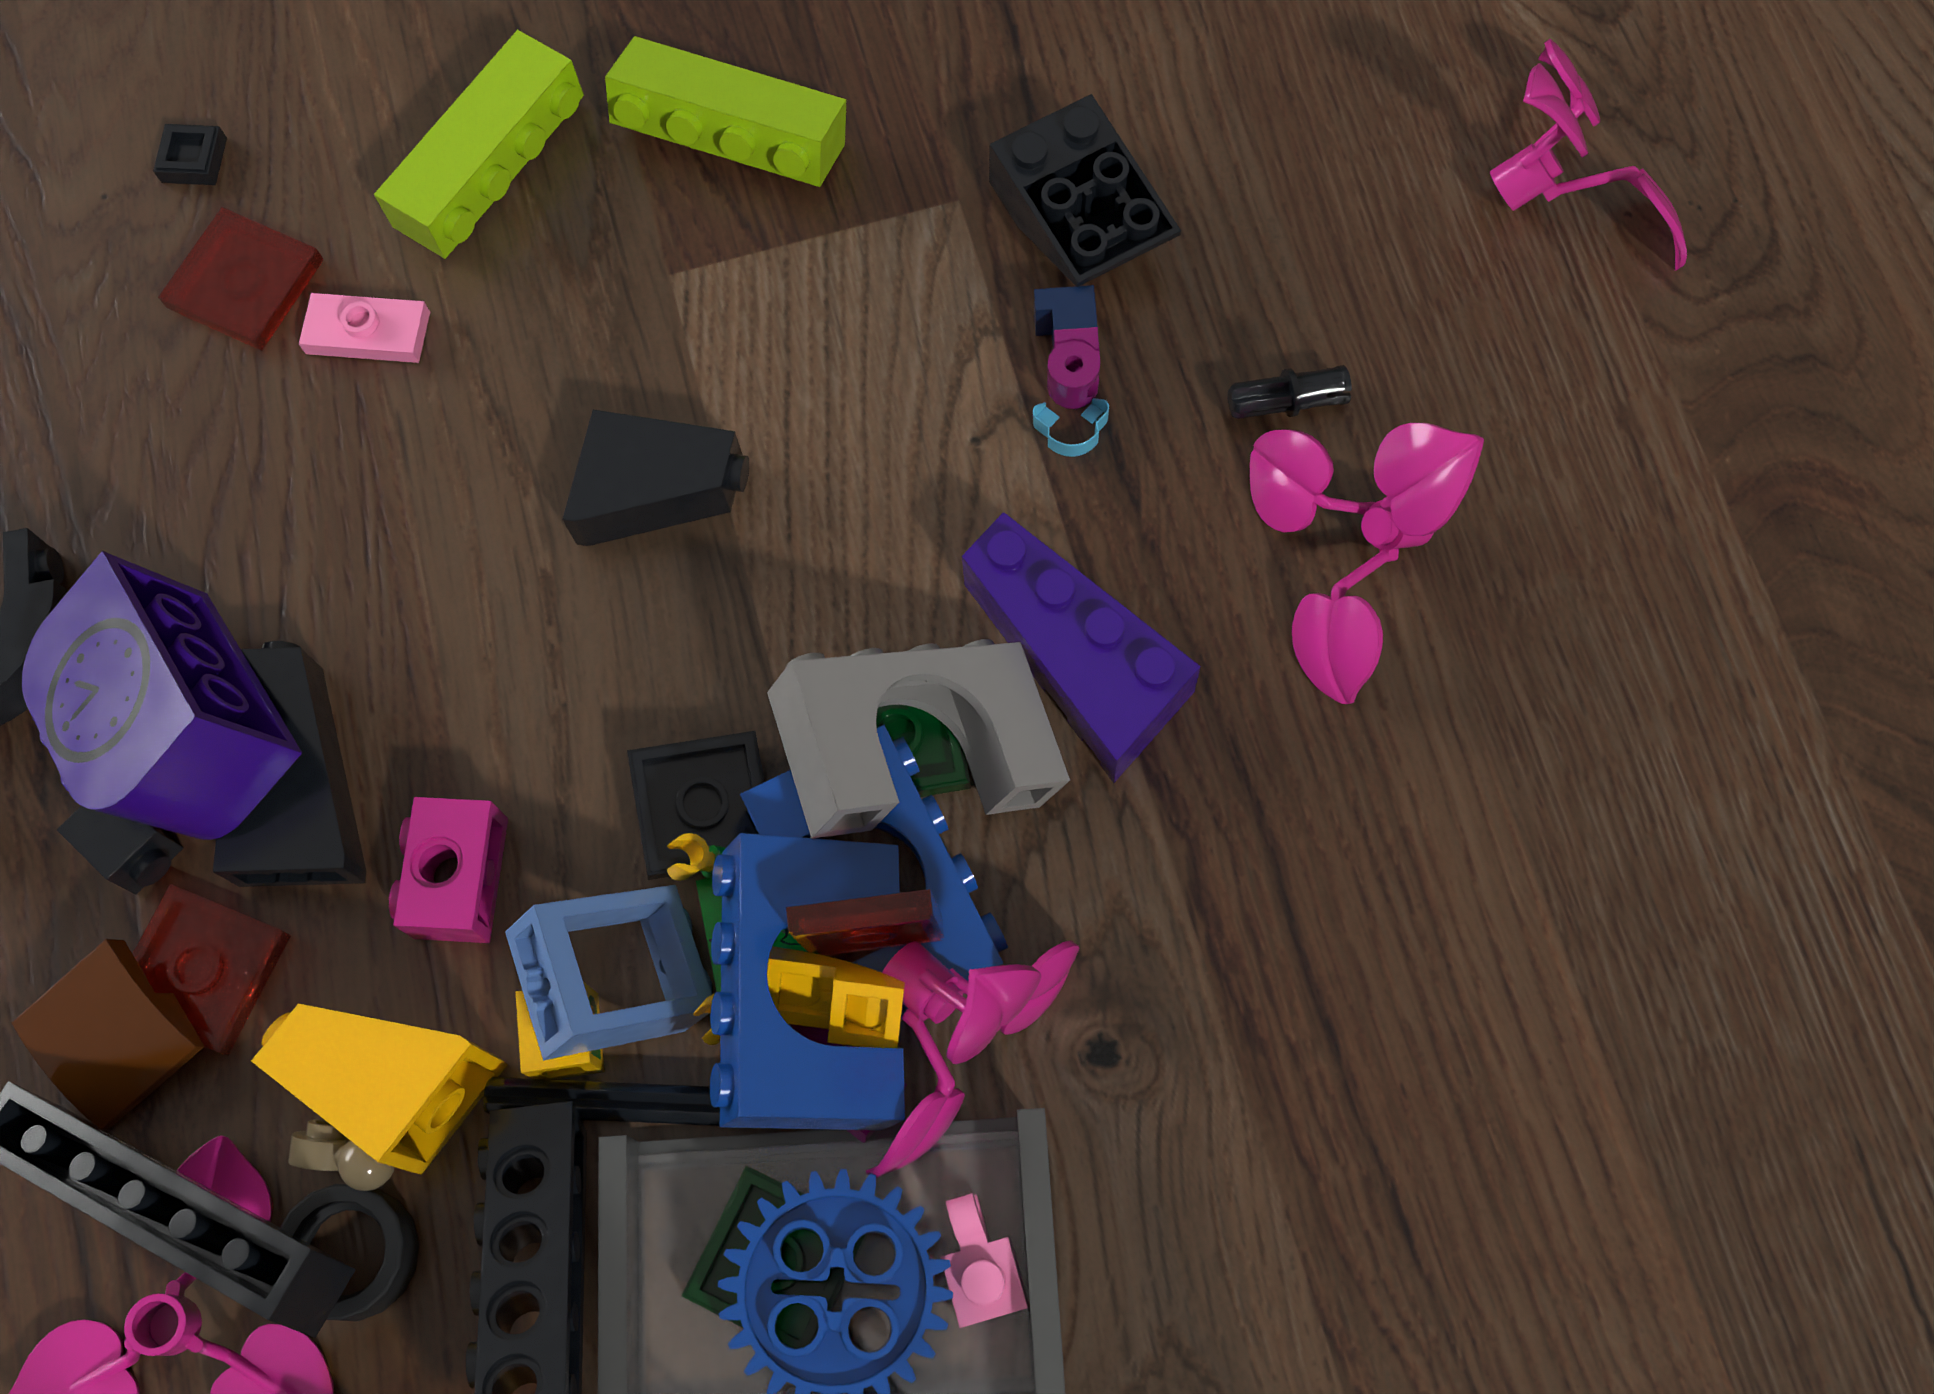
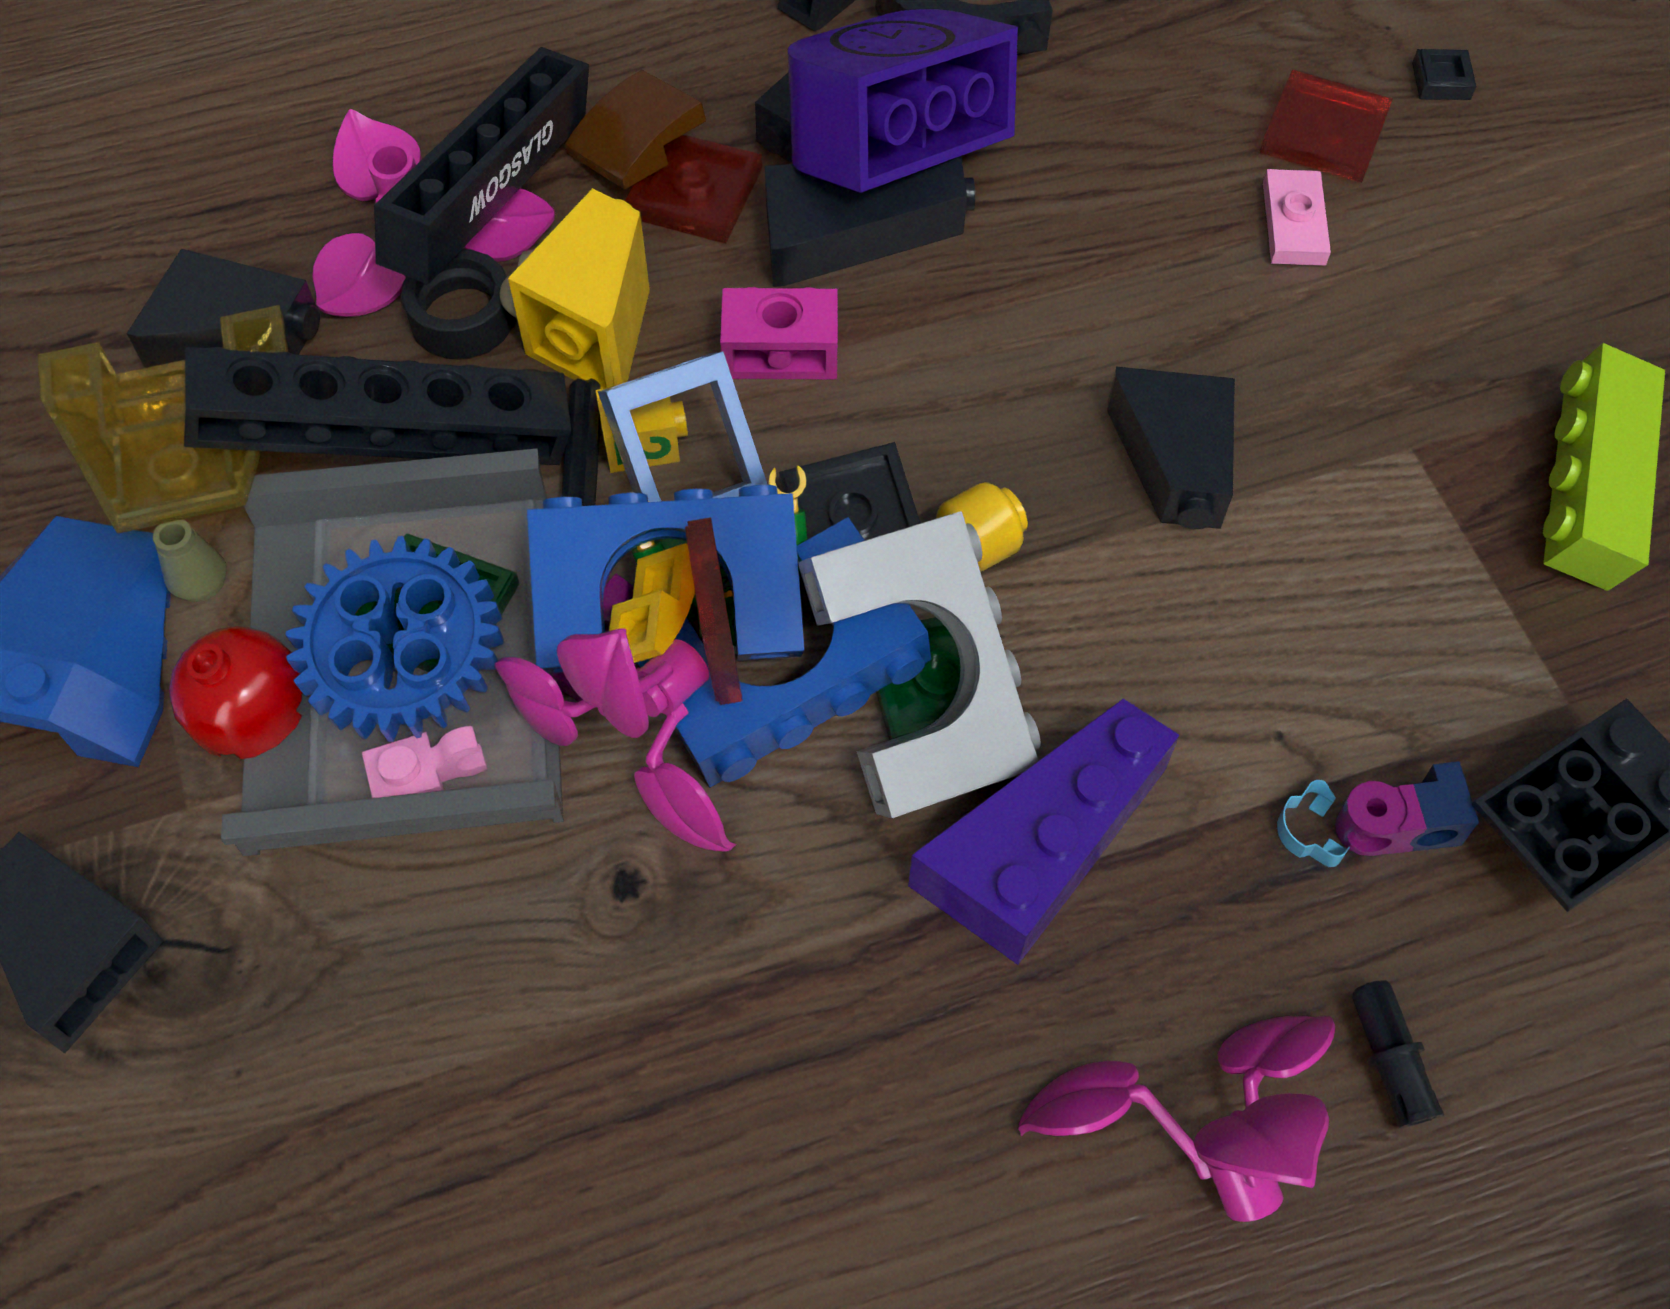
camera: 80 degrees right, 10 degrees down
(480, 144) = (1510, 269): lime brick -> none
(734, 676) = (996, 518): none -> yellow head

